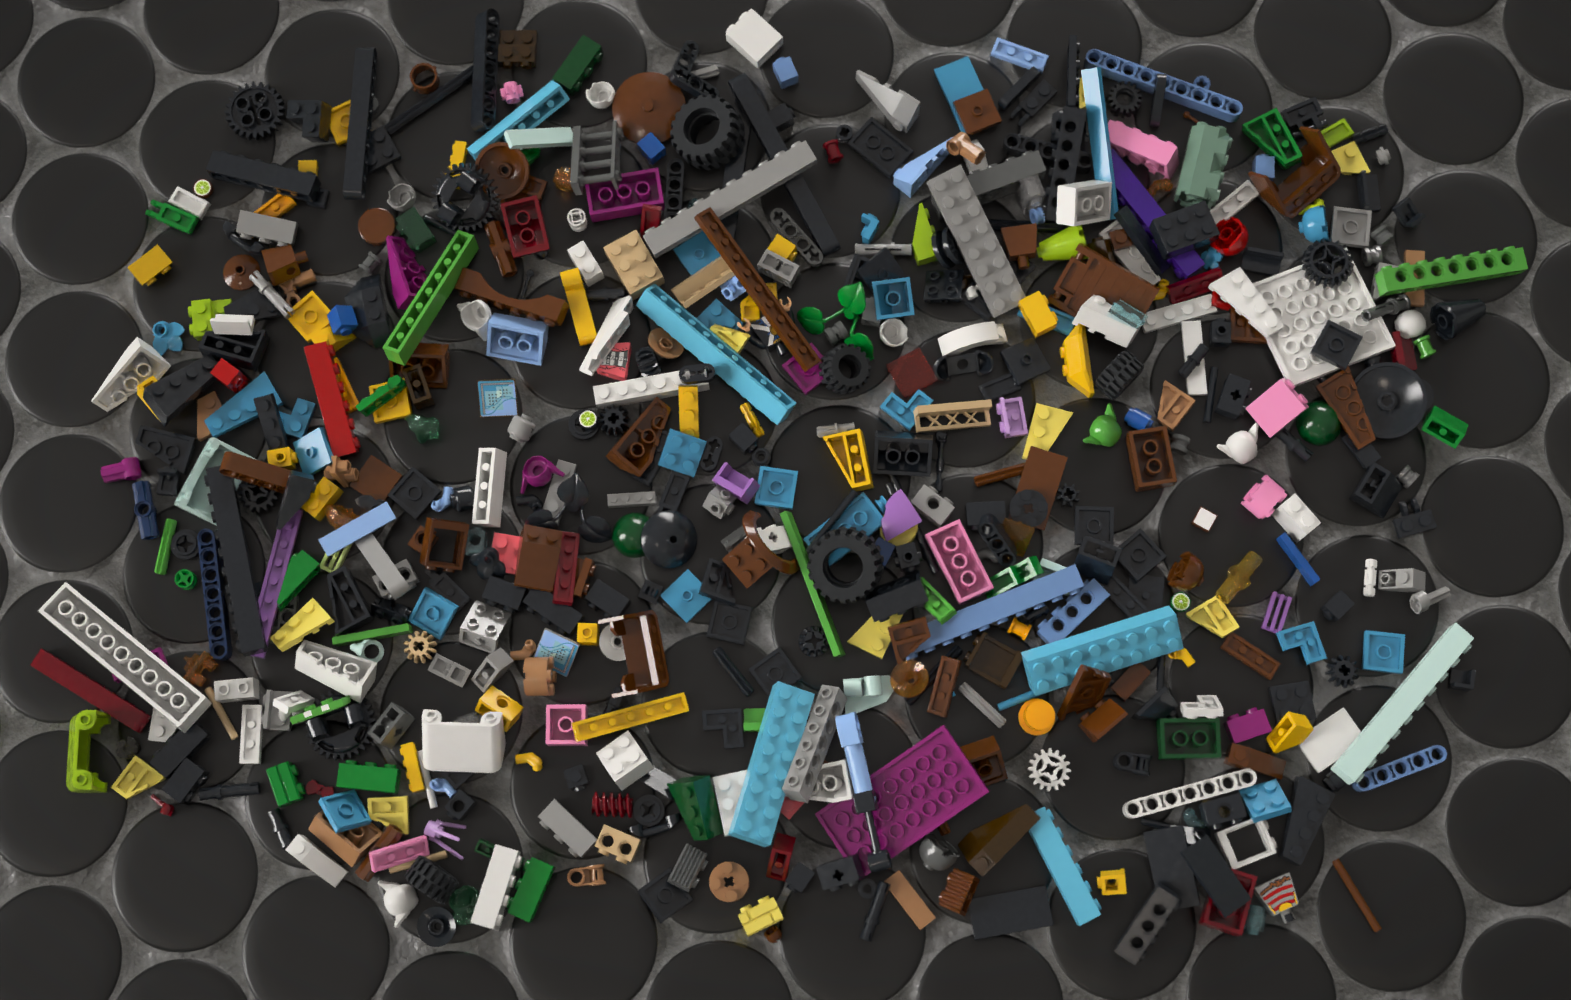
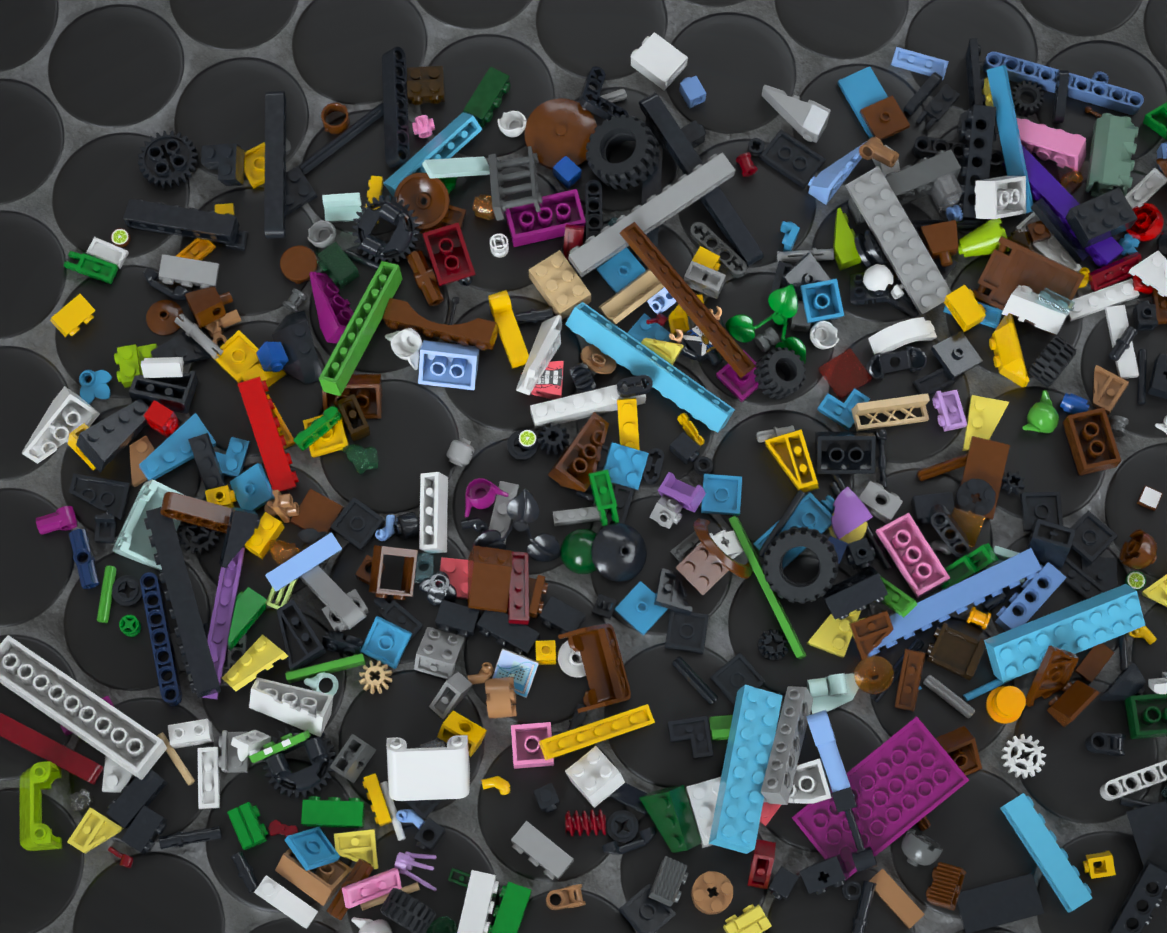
camera: 10 degrees left, 5 degrees down
(196, 665) = (147, 712): clear orange hips -> none
(424, 170) = (341, 207): none -> light aqua panel
(449, 670) = (406, 699): light grey slope -> none
(497, 397) = (434, 423): piece -> none
(586, 263) = (508, 280): white brick -> none
(619, 840) = (596, 857): tan brick -> none
(657, 481) = (603, 495): none -> green hinge
(732, 305) = (660, 319): none -> dark red hand
(952, 278) = (877, 277): none -> white hair
(991, 841) = (975, 831): dark brown wedge -> none

